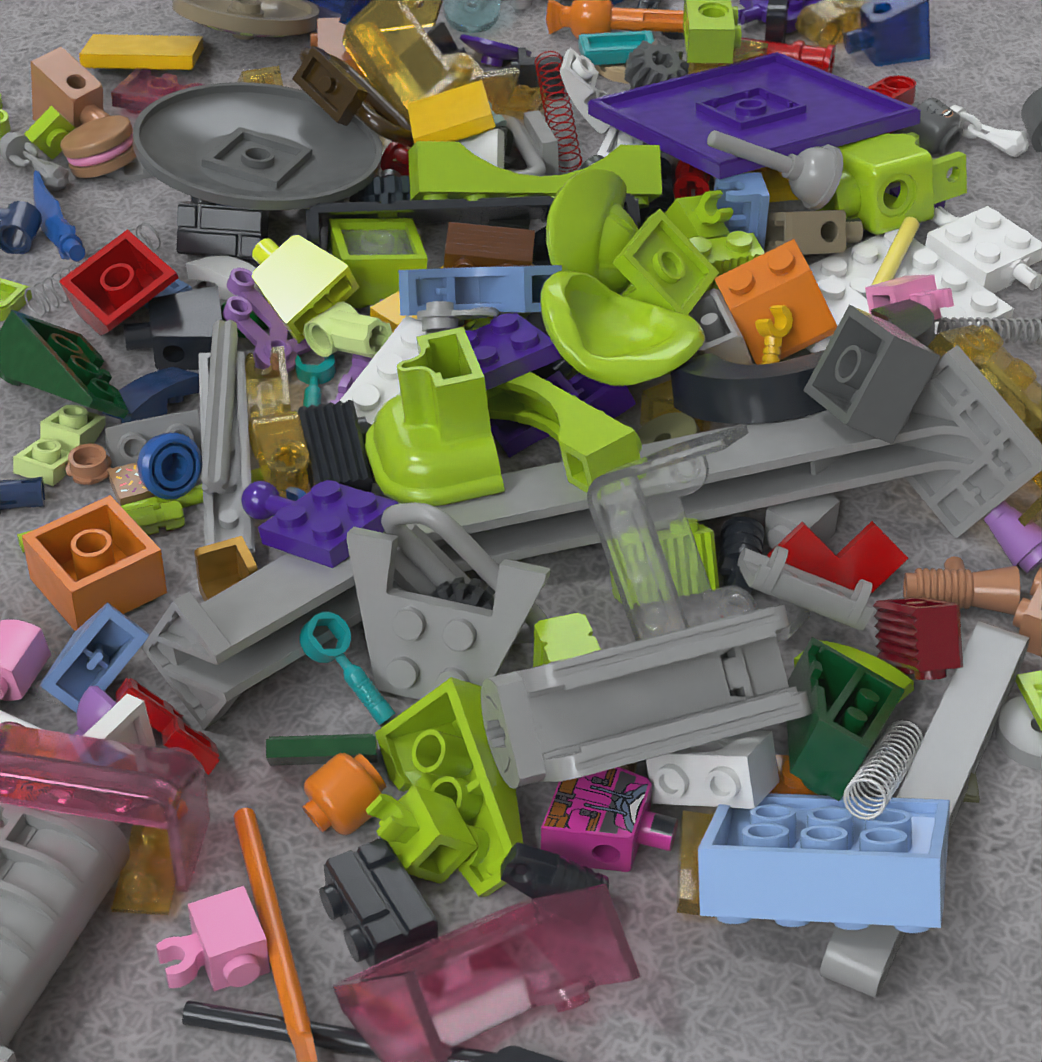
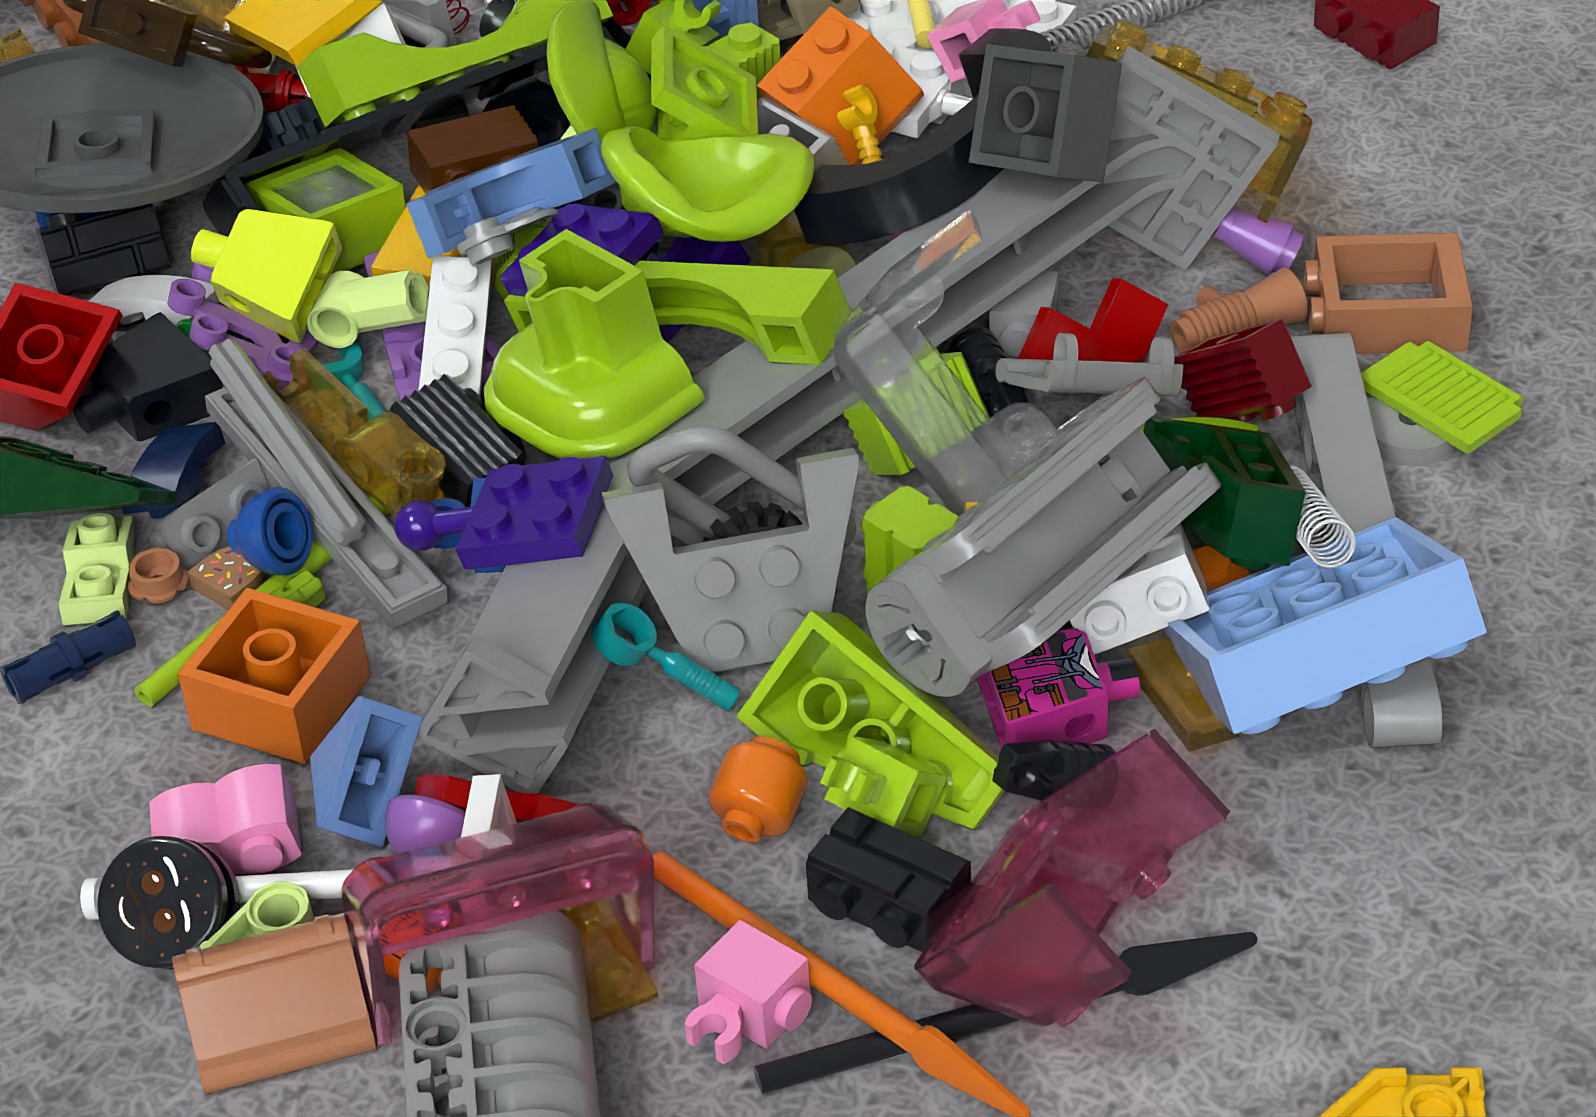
camera: 25 degrees left, 0 degrees up
(222, 565) = (436, 623): pearl gold panel -> none
(318, 748) = (693, 756): dark green tile -> none

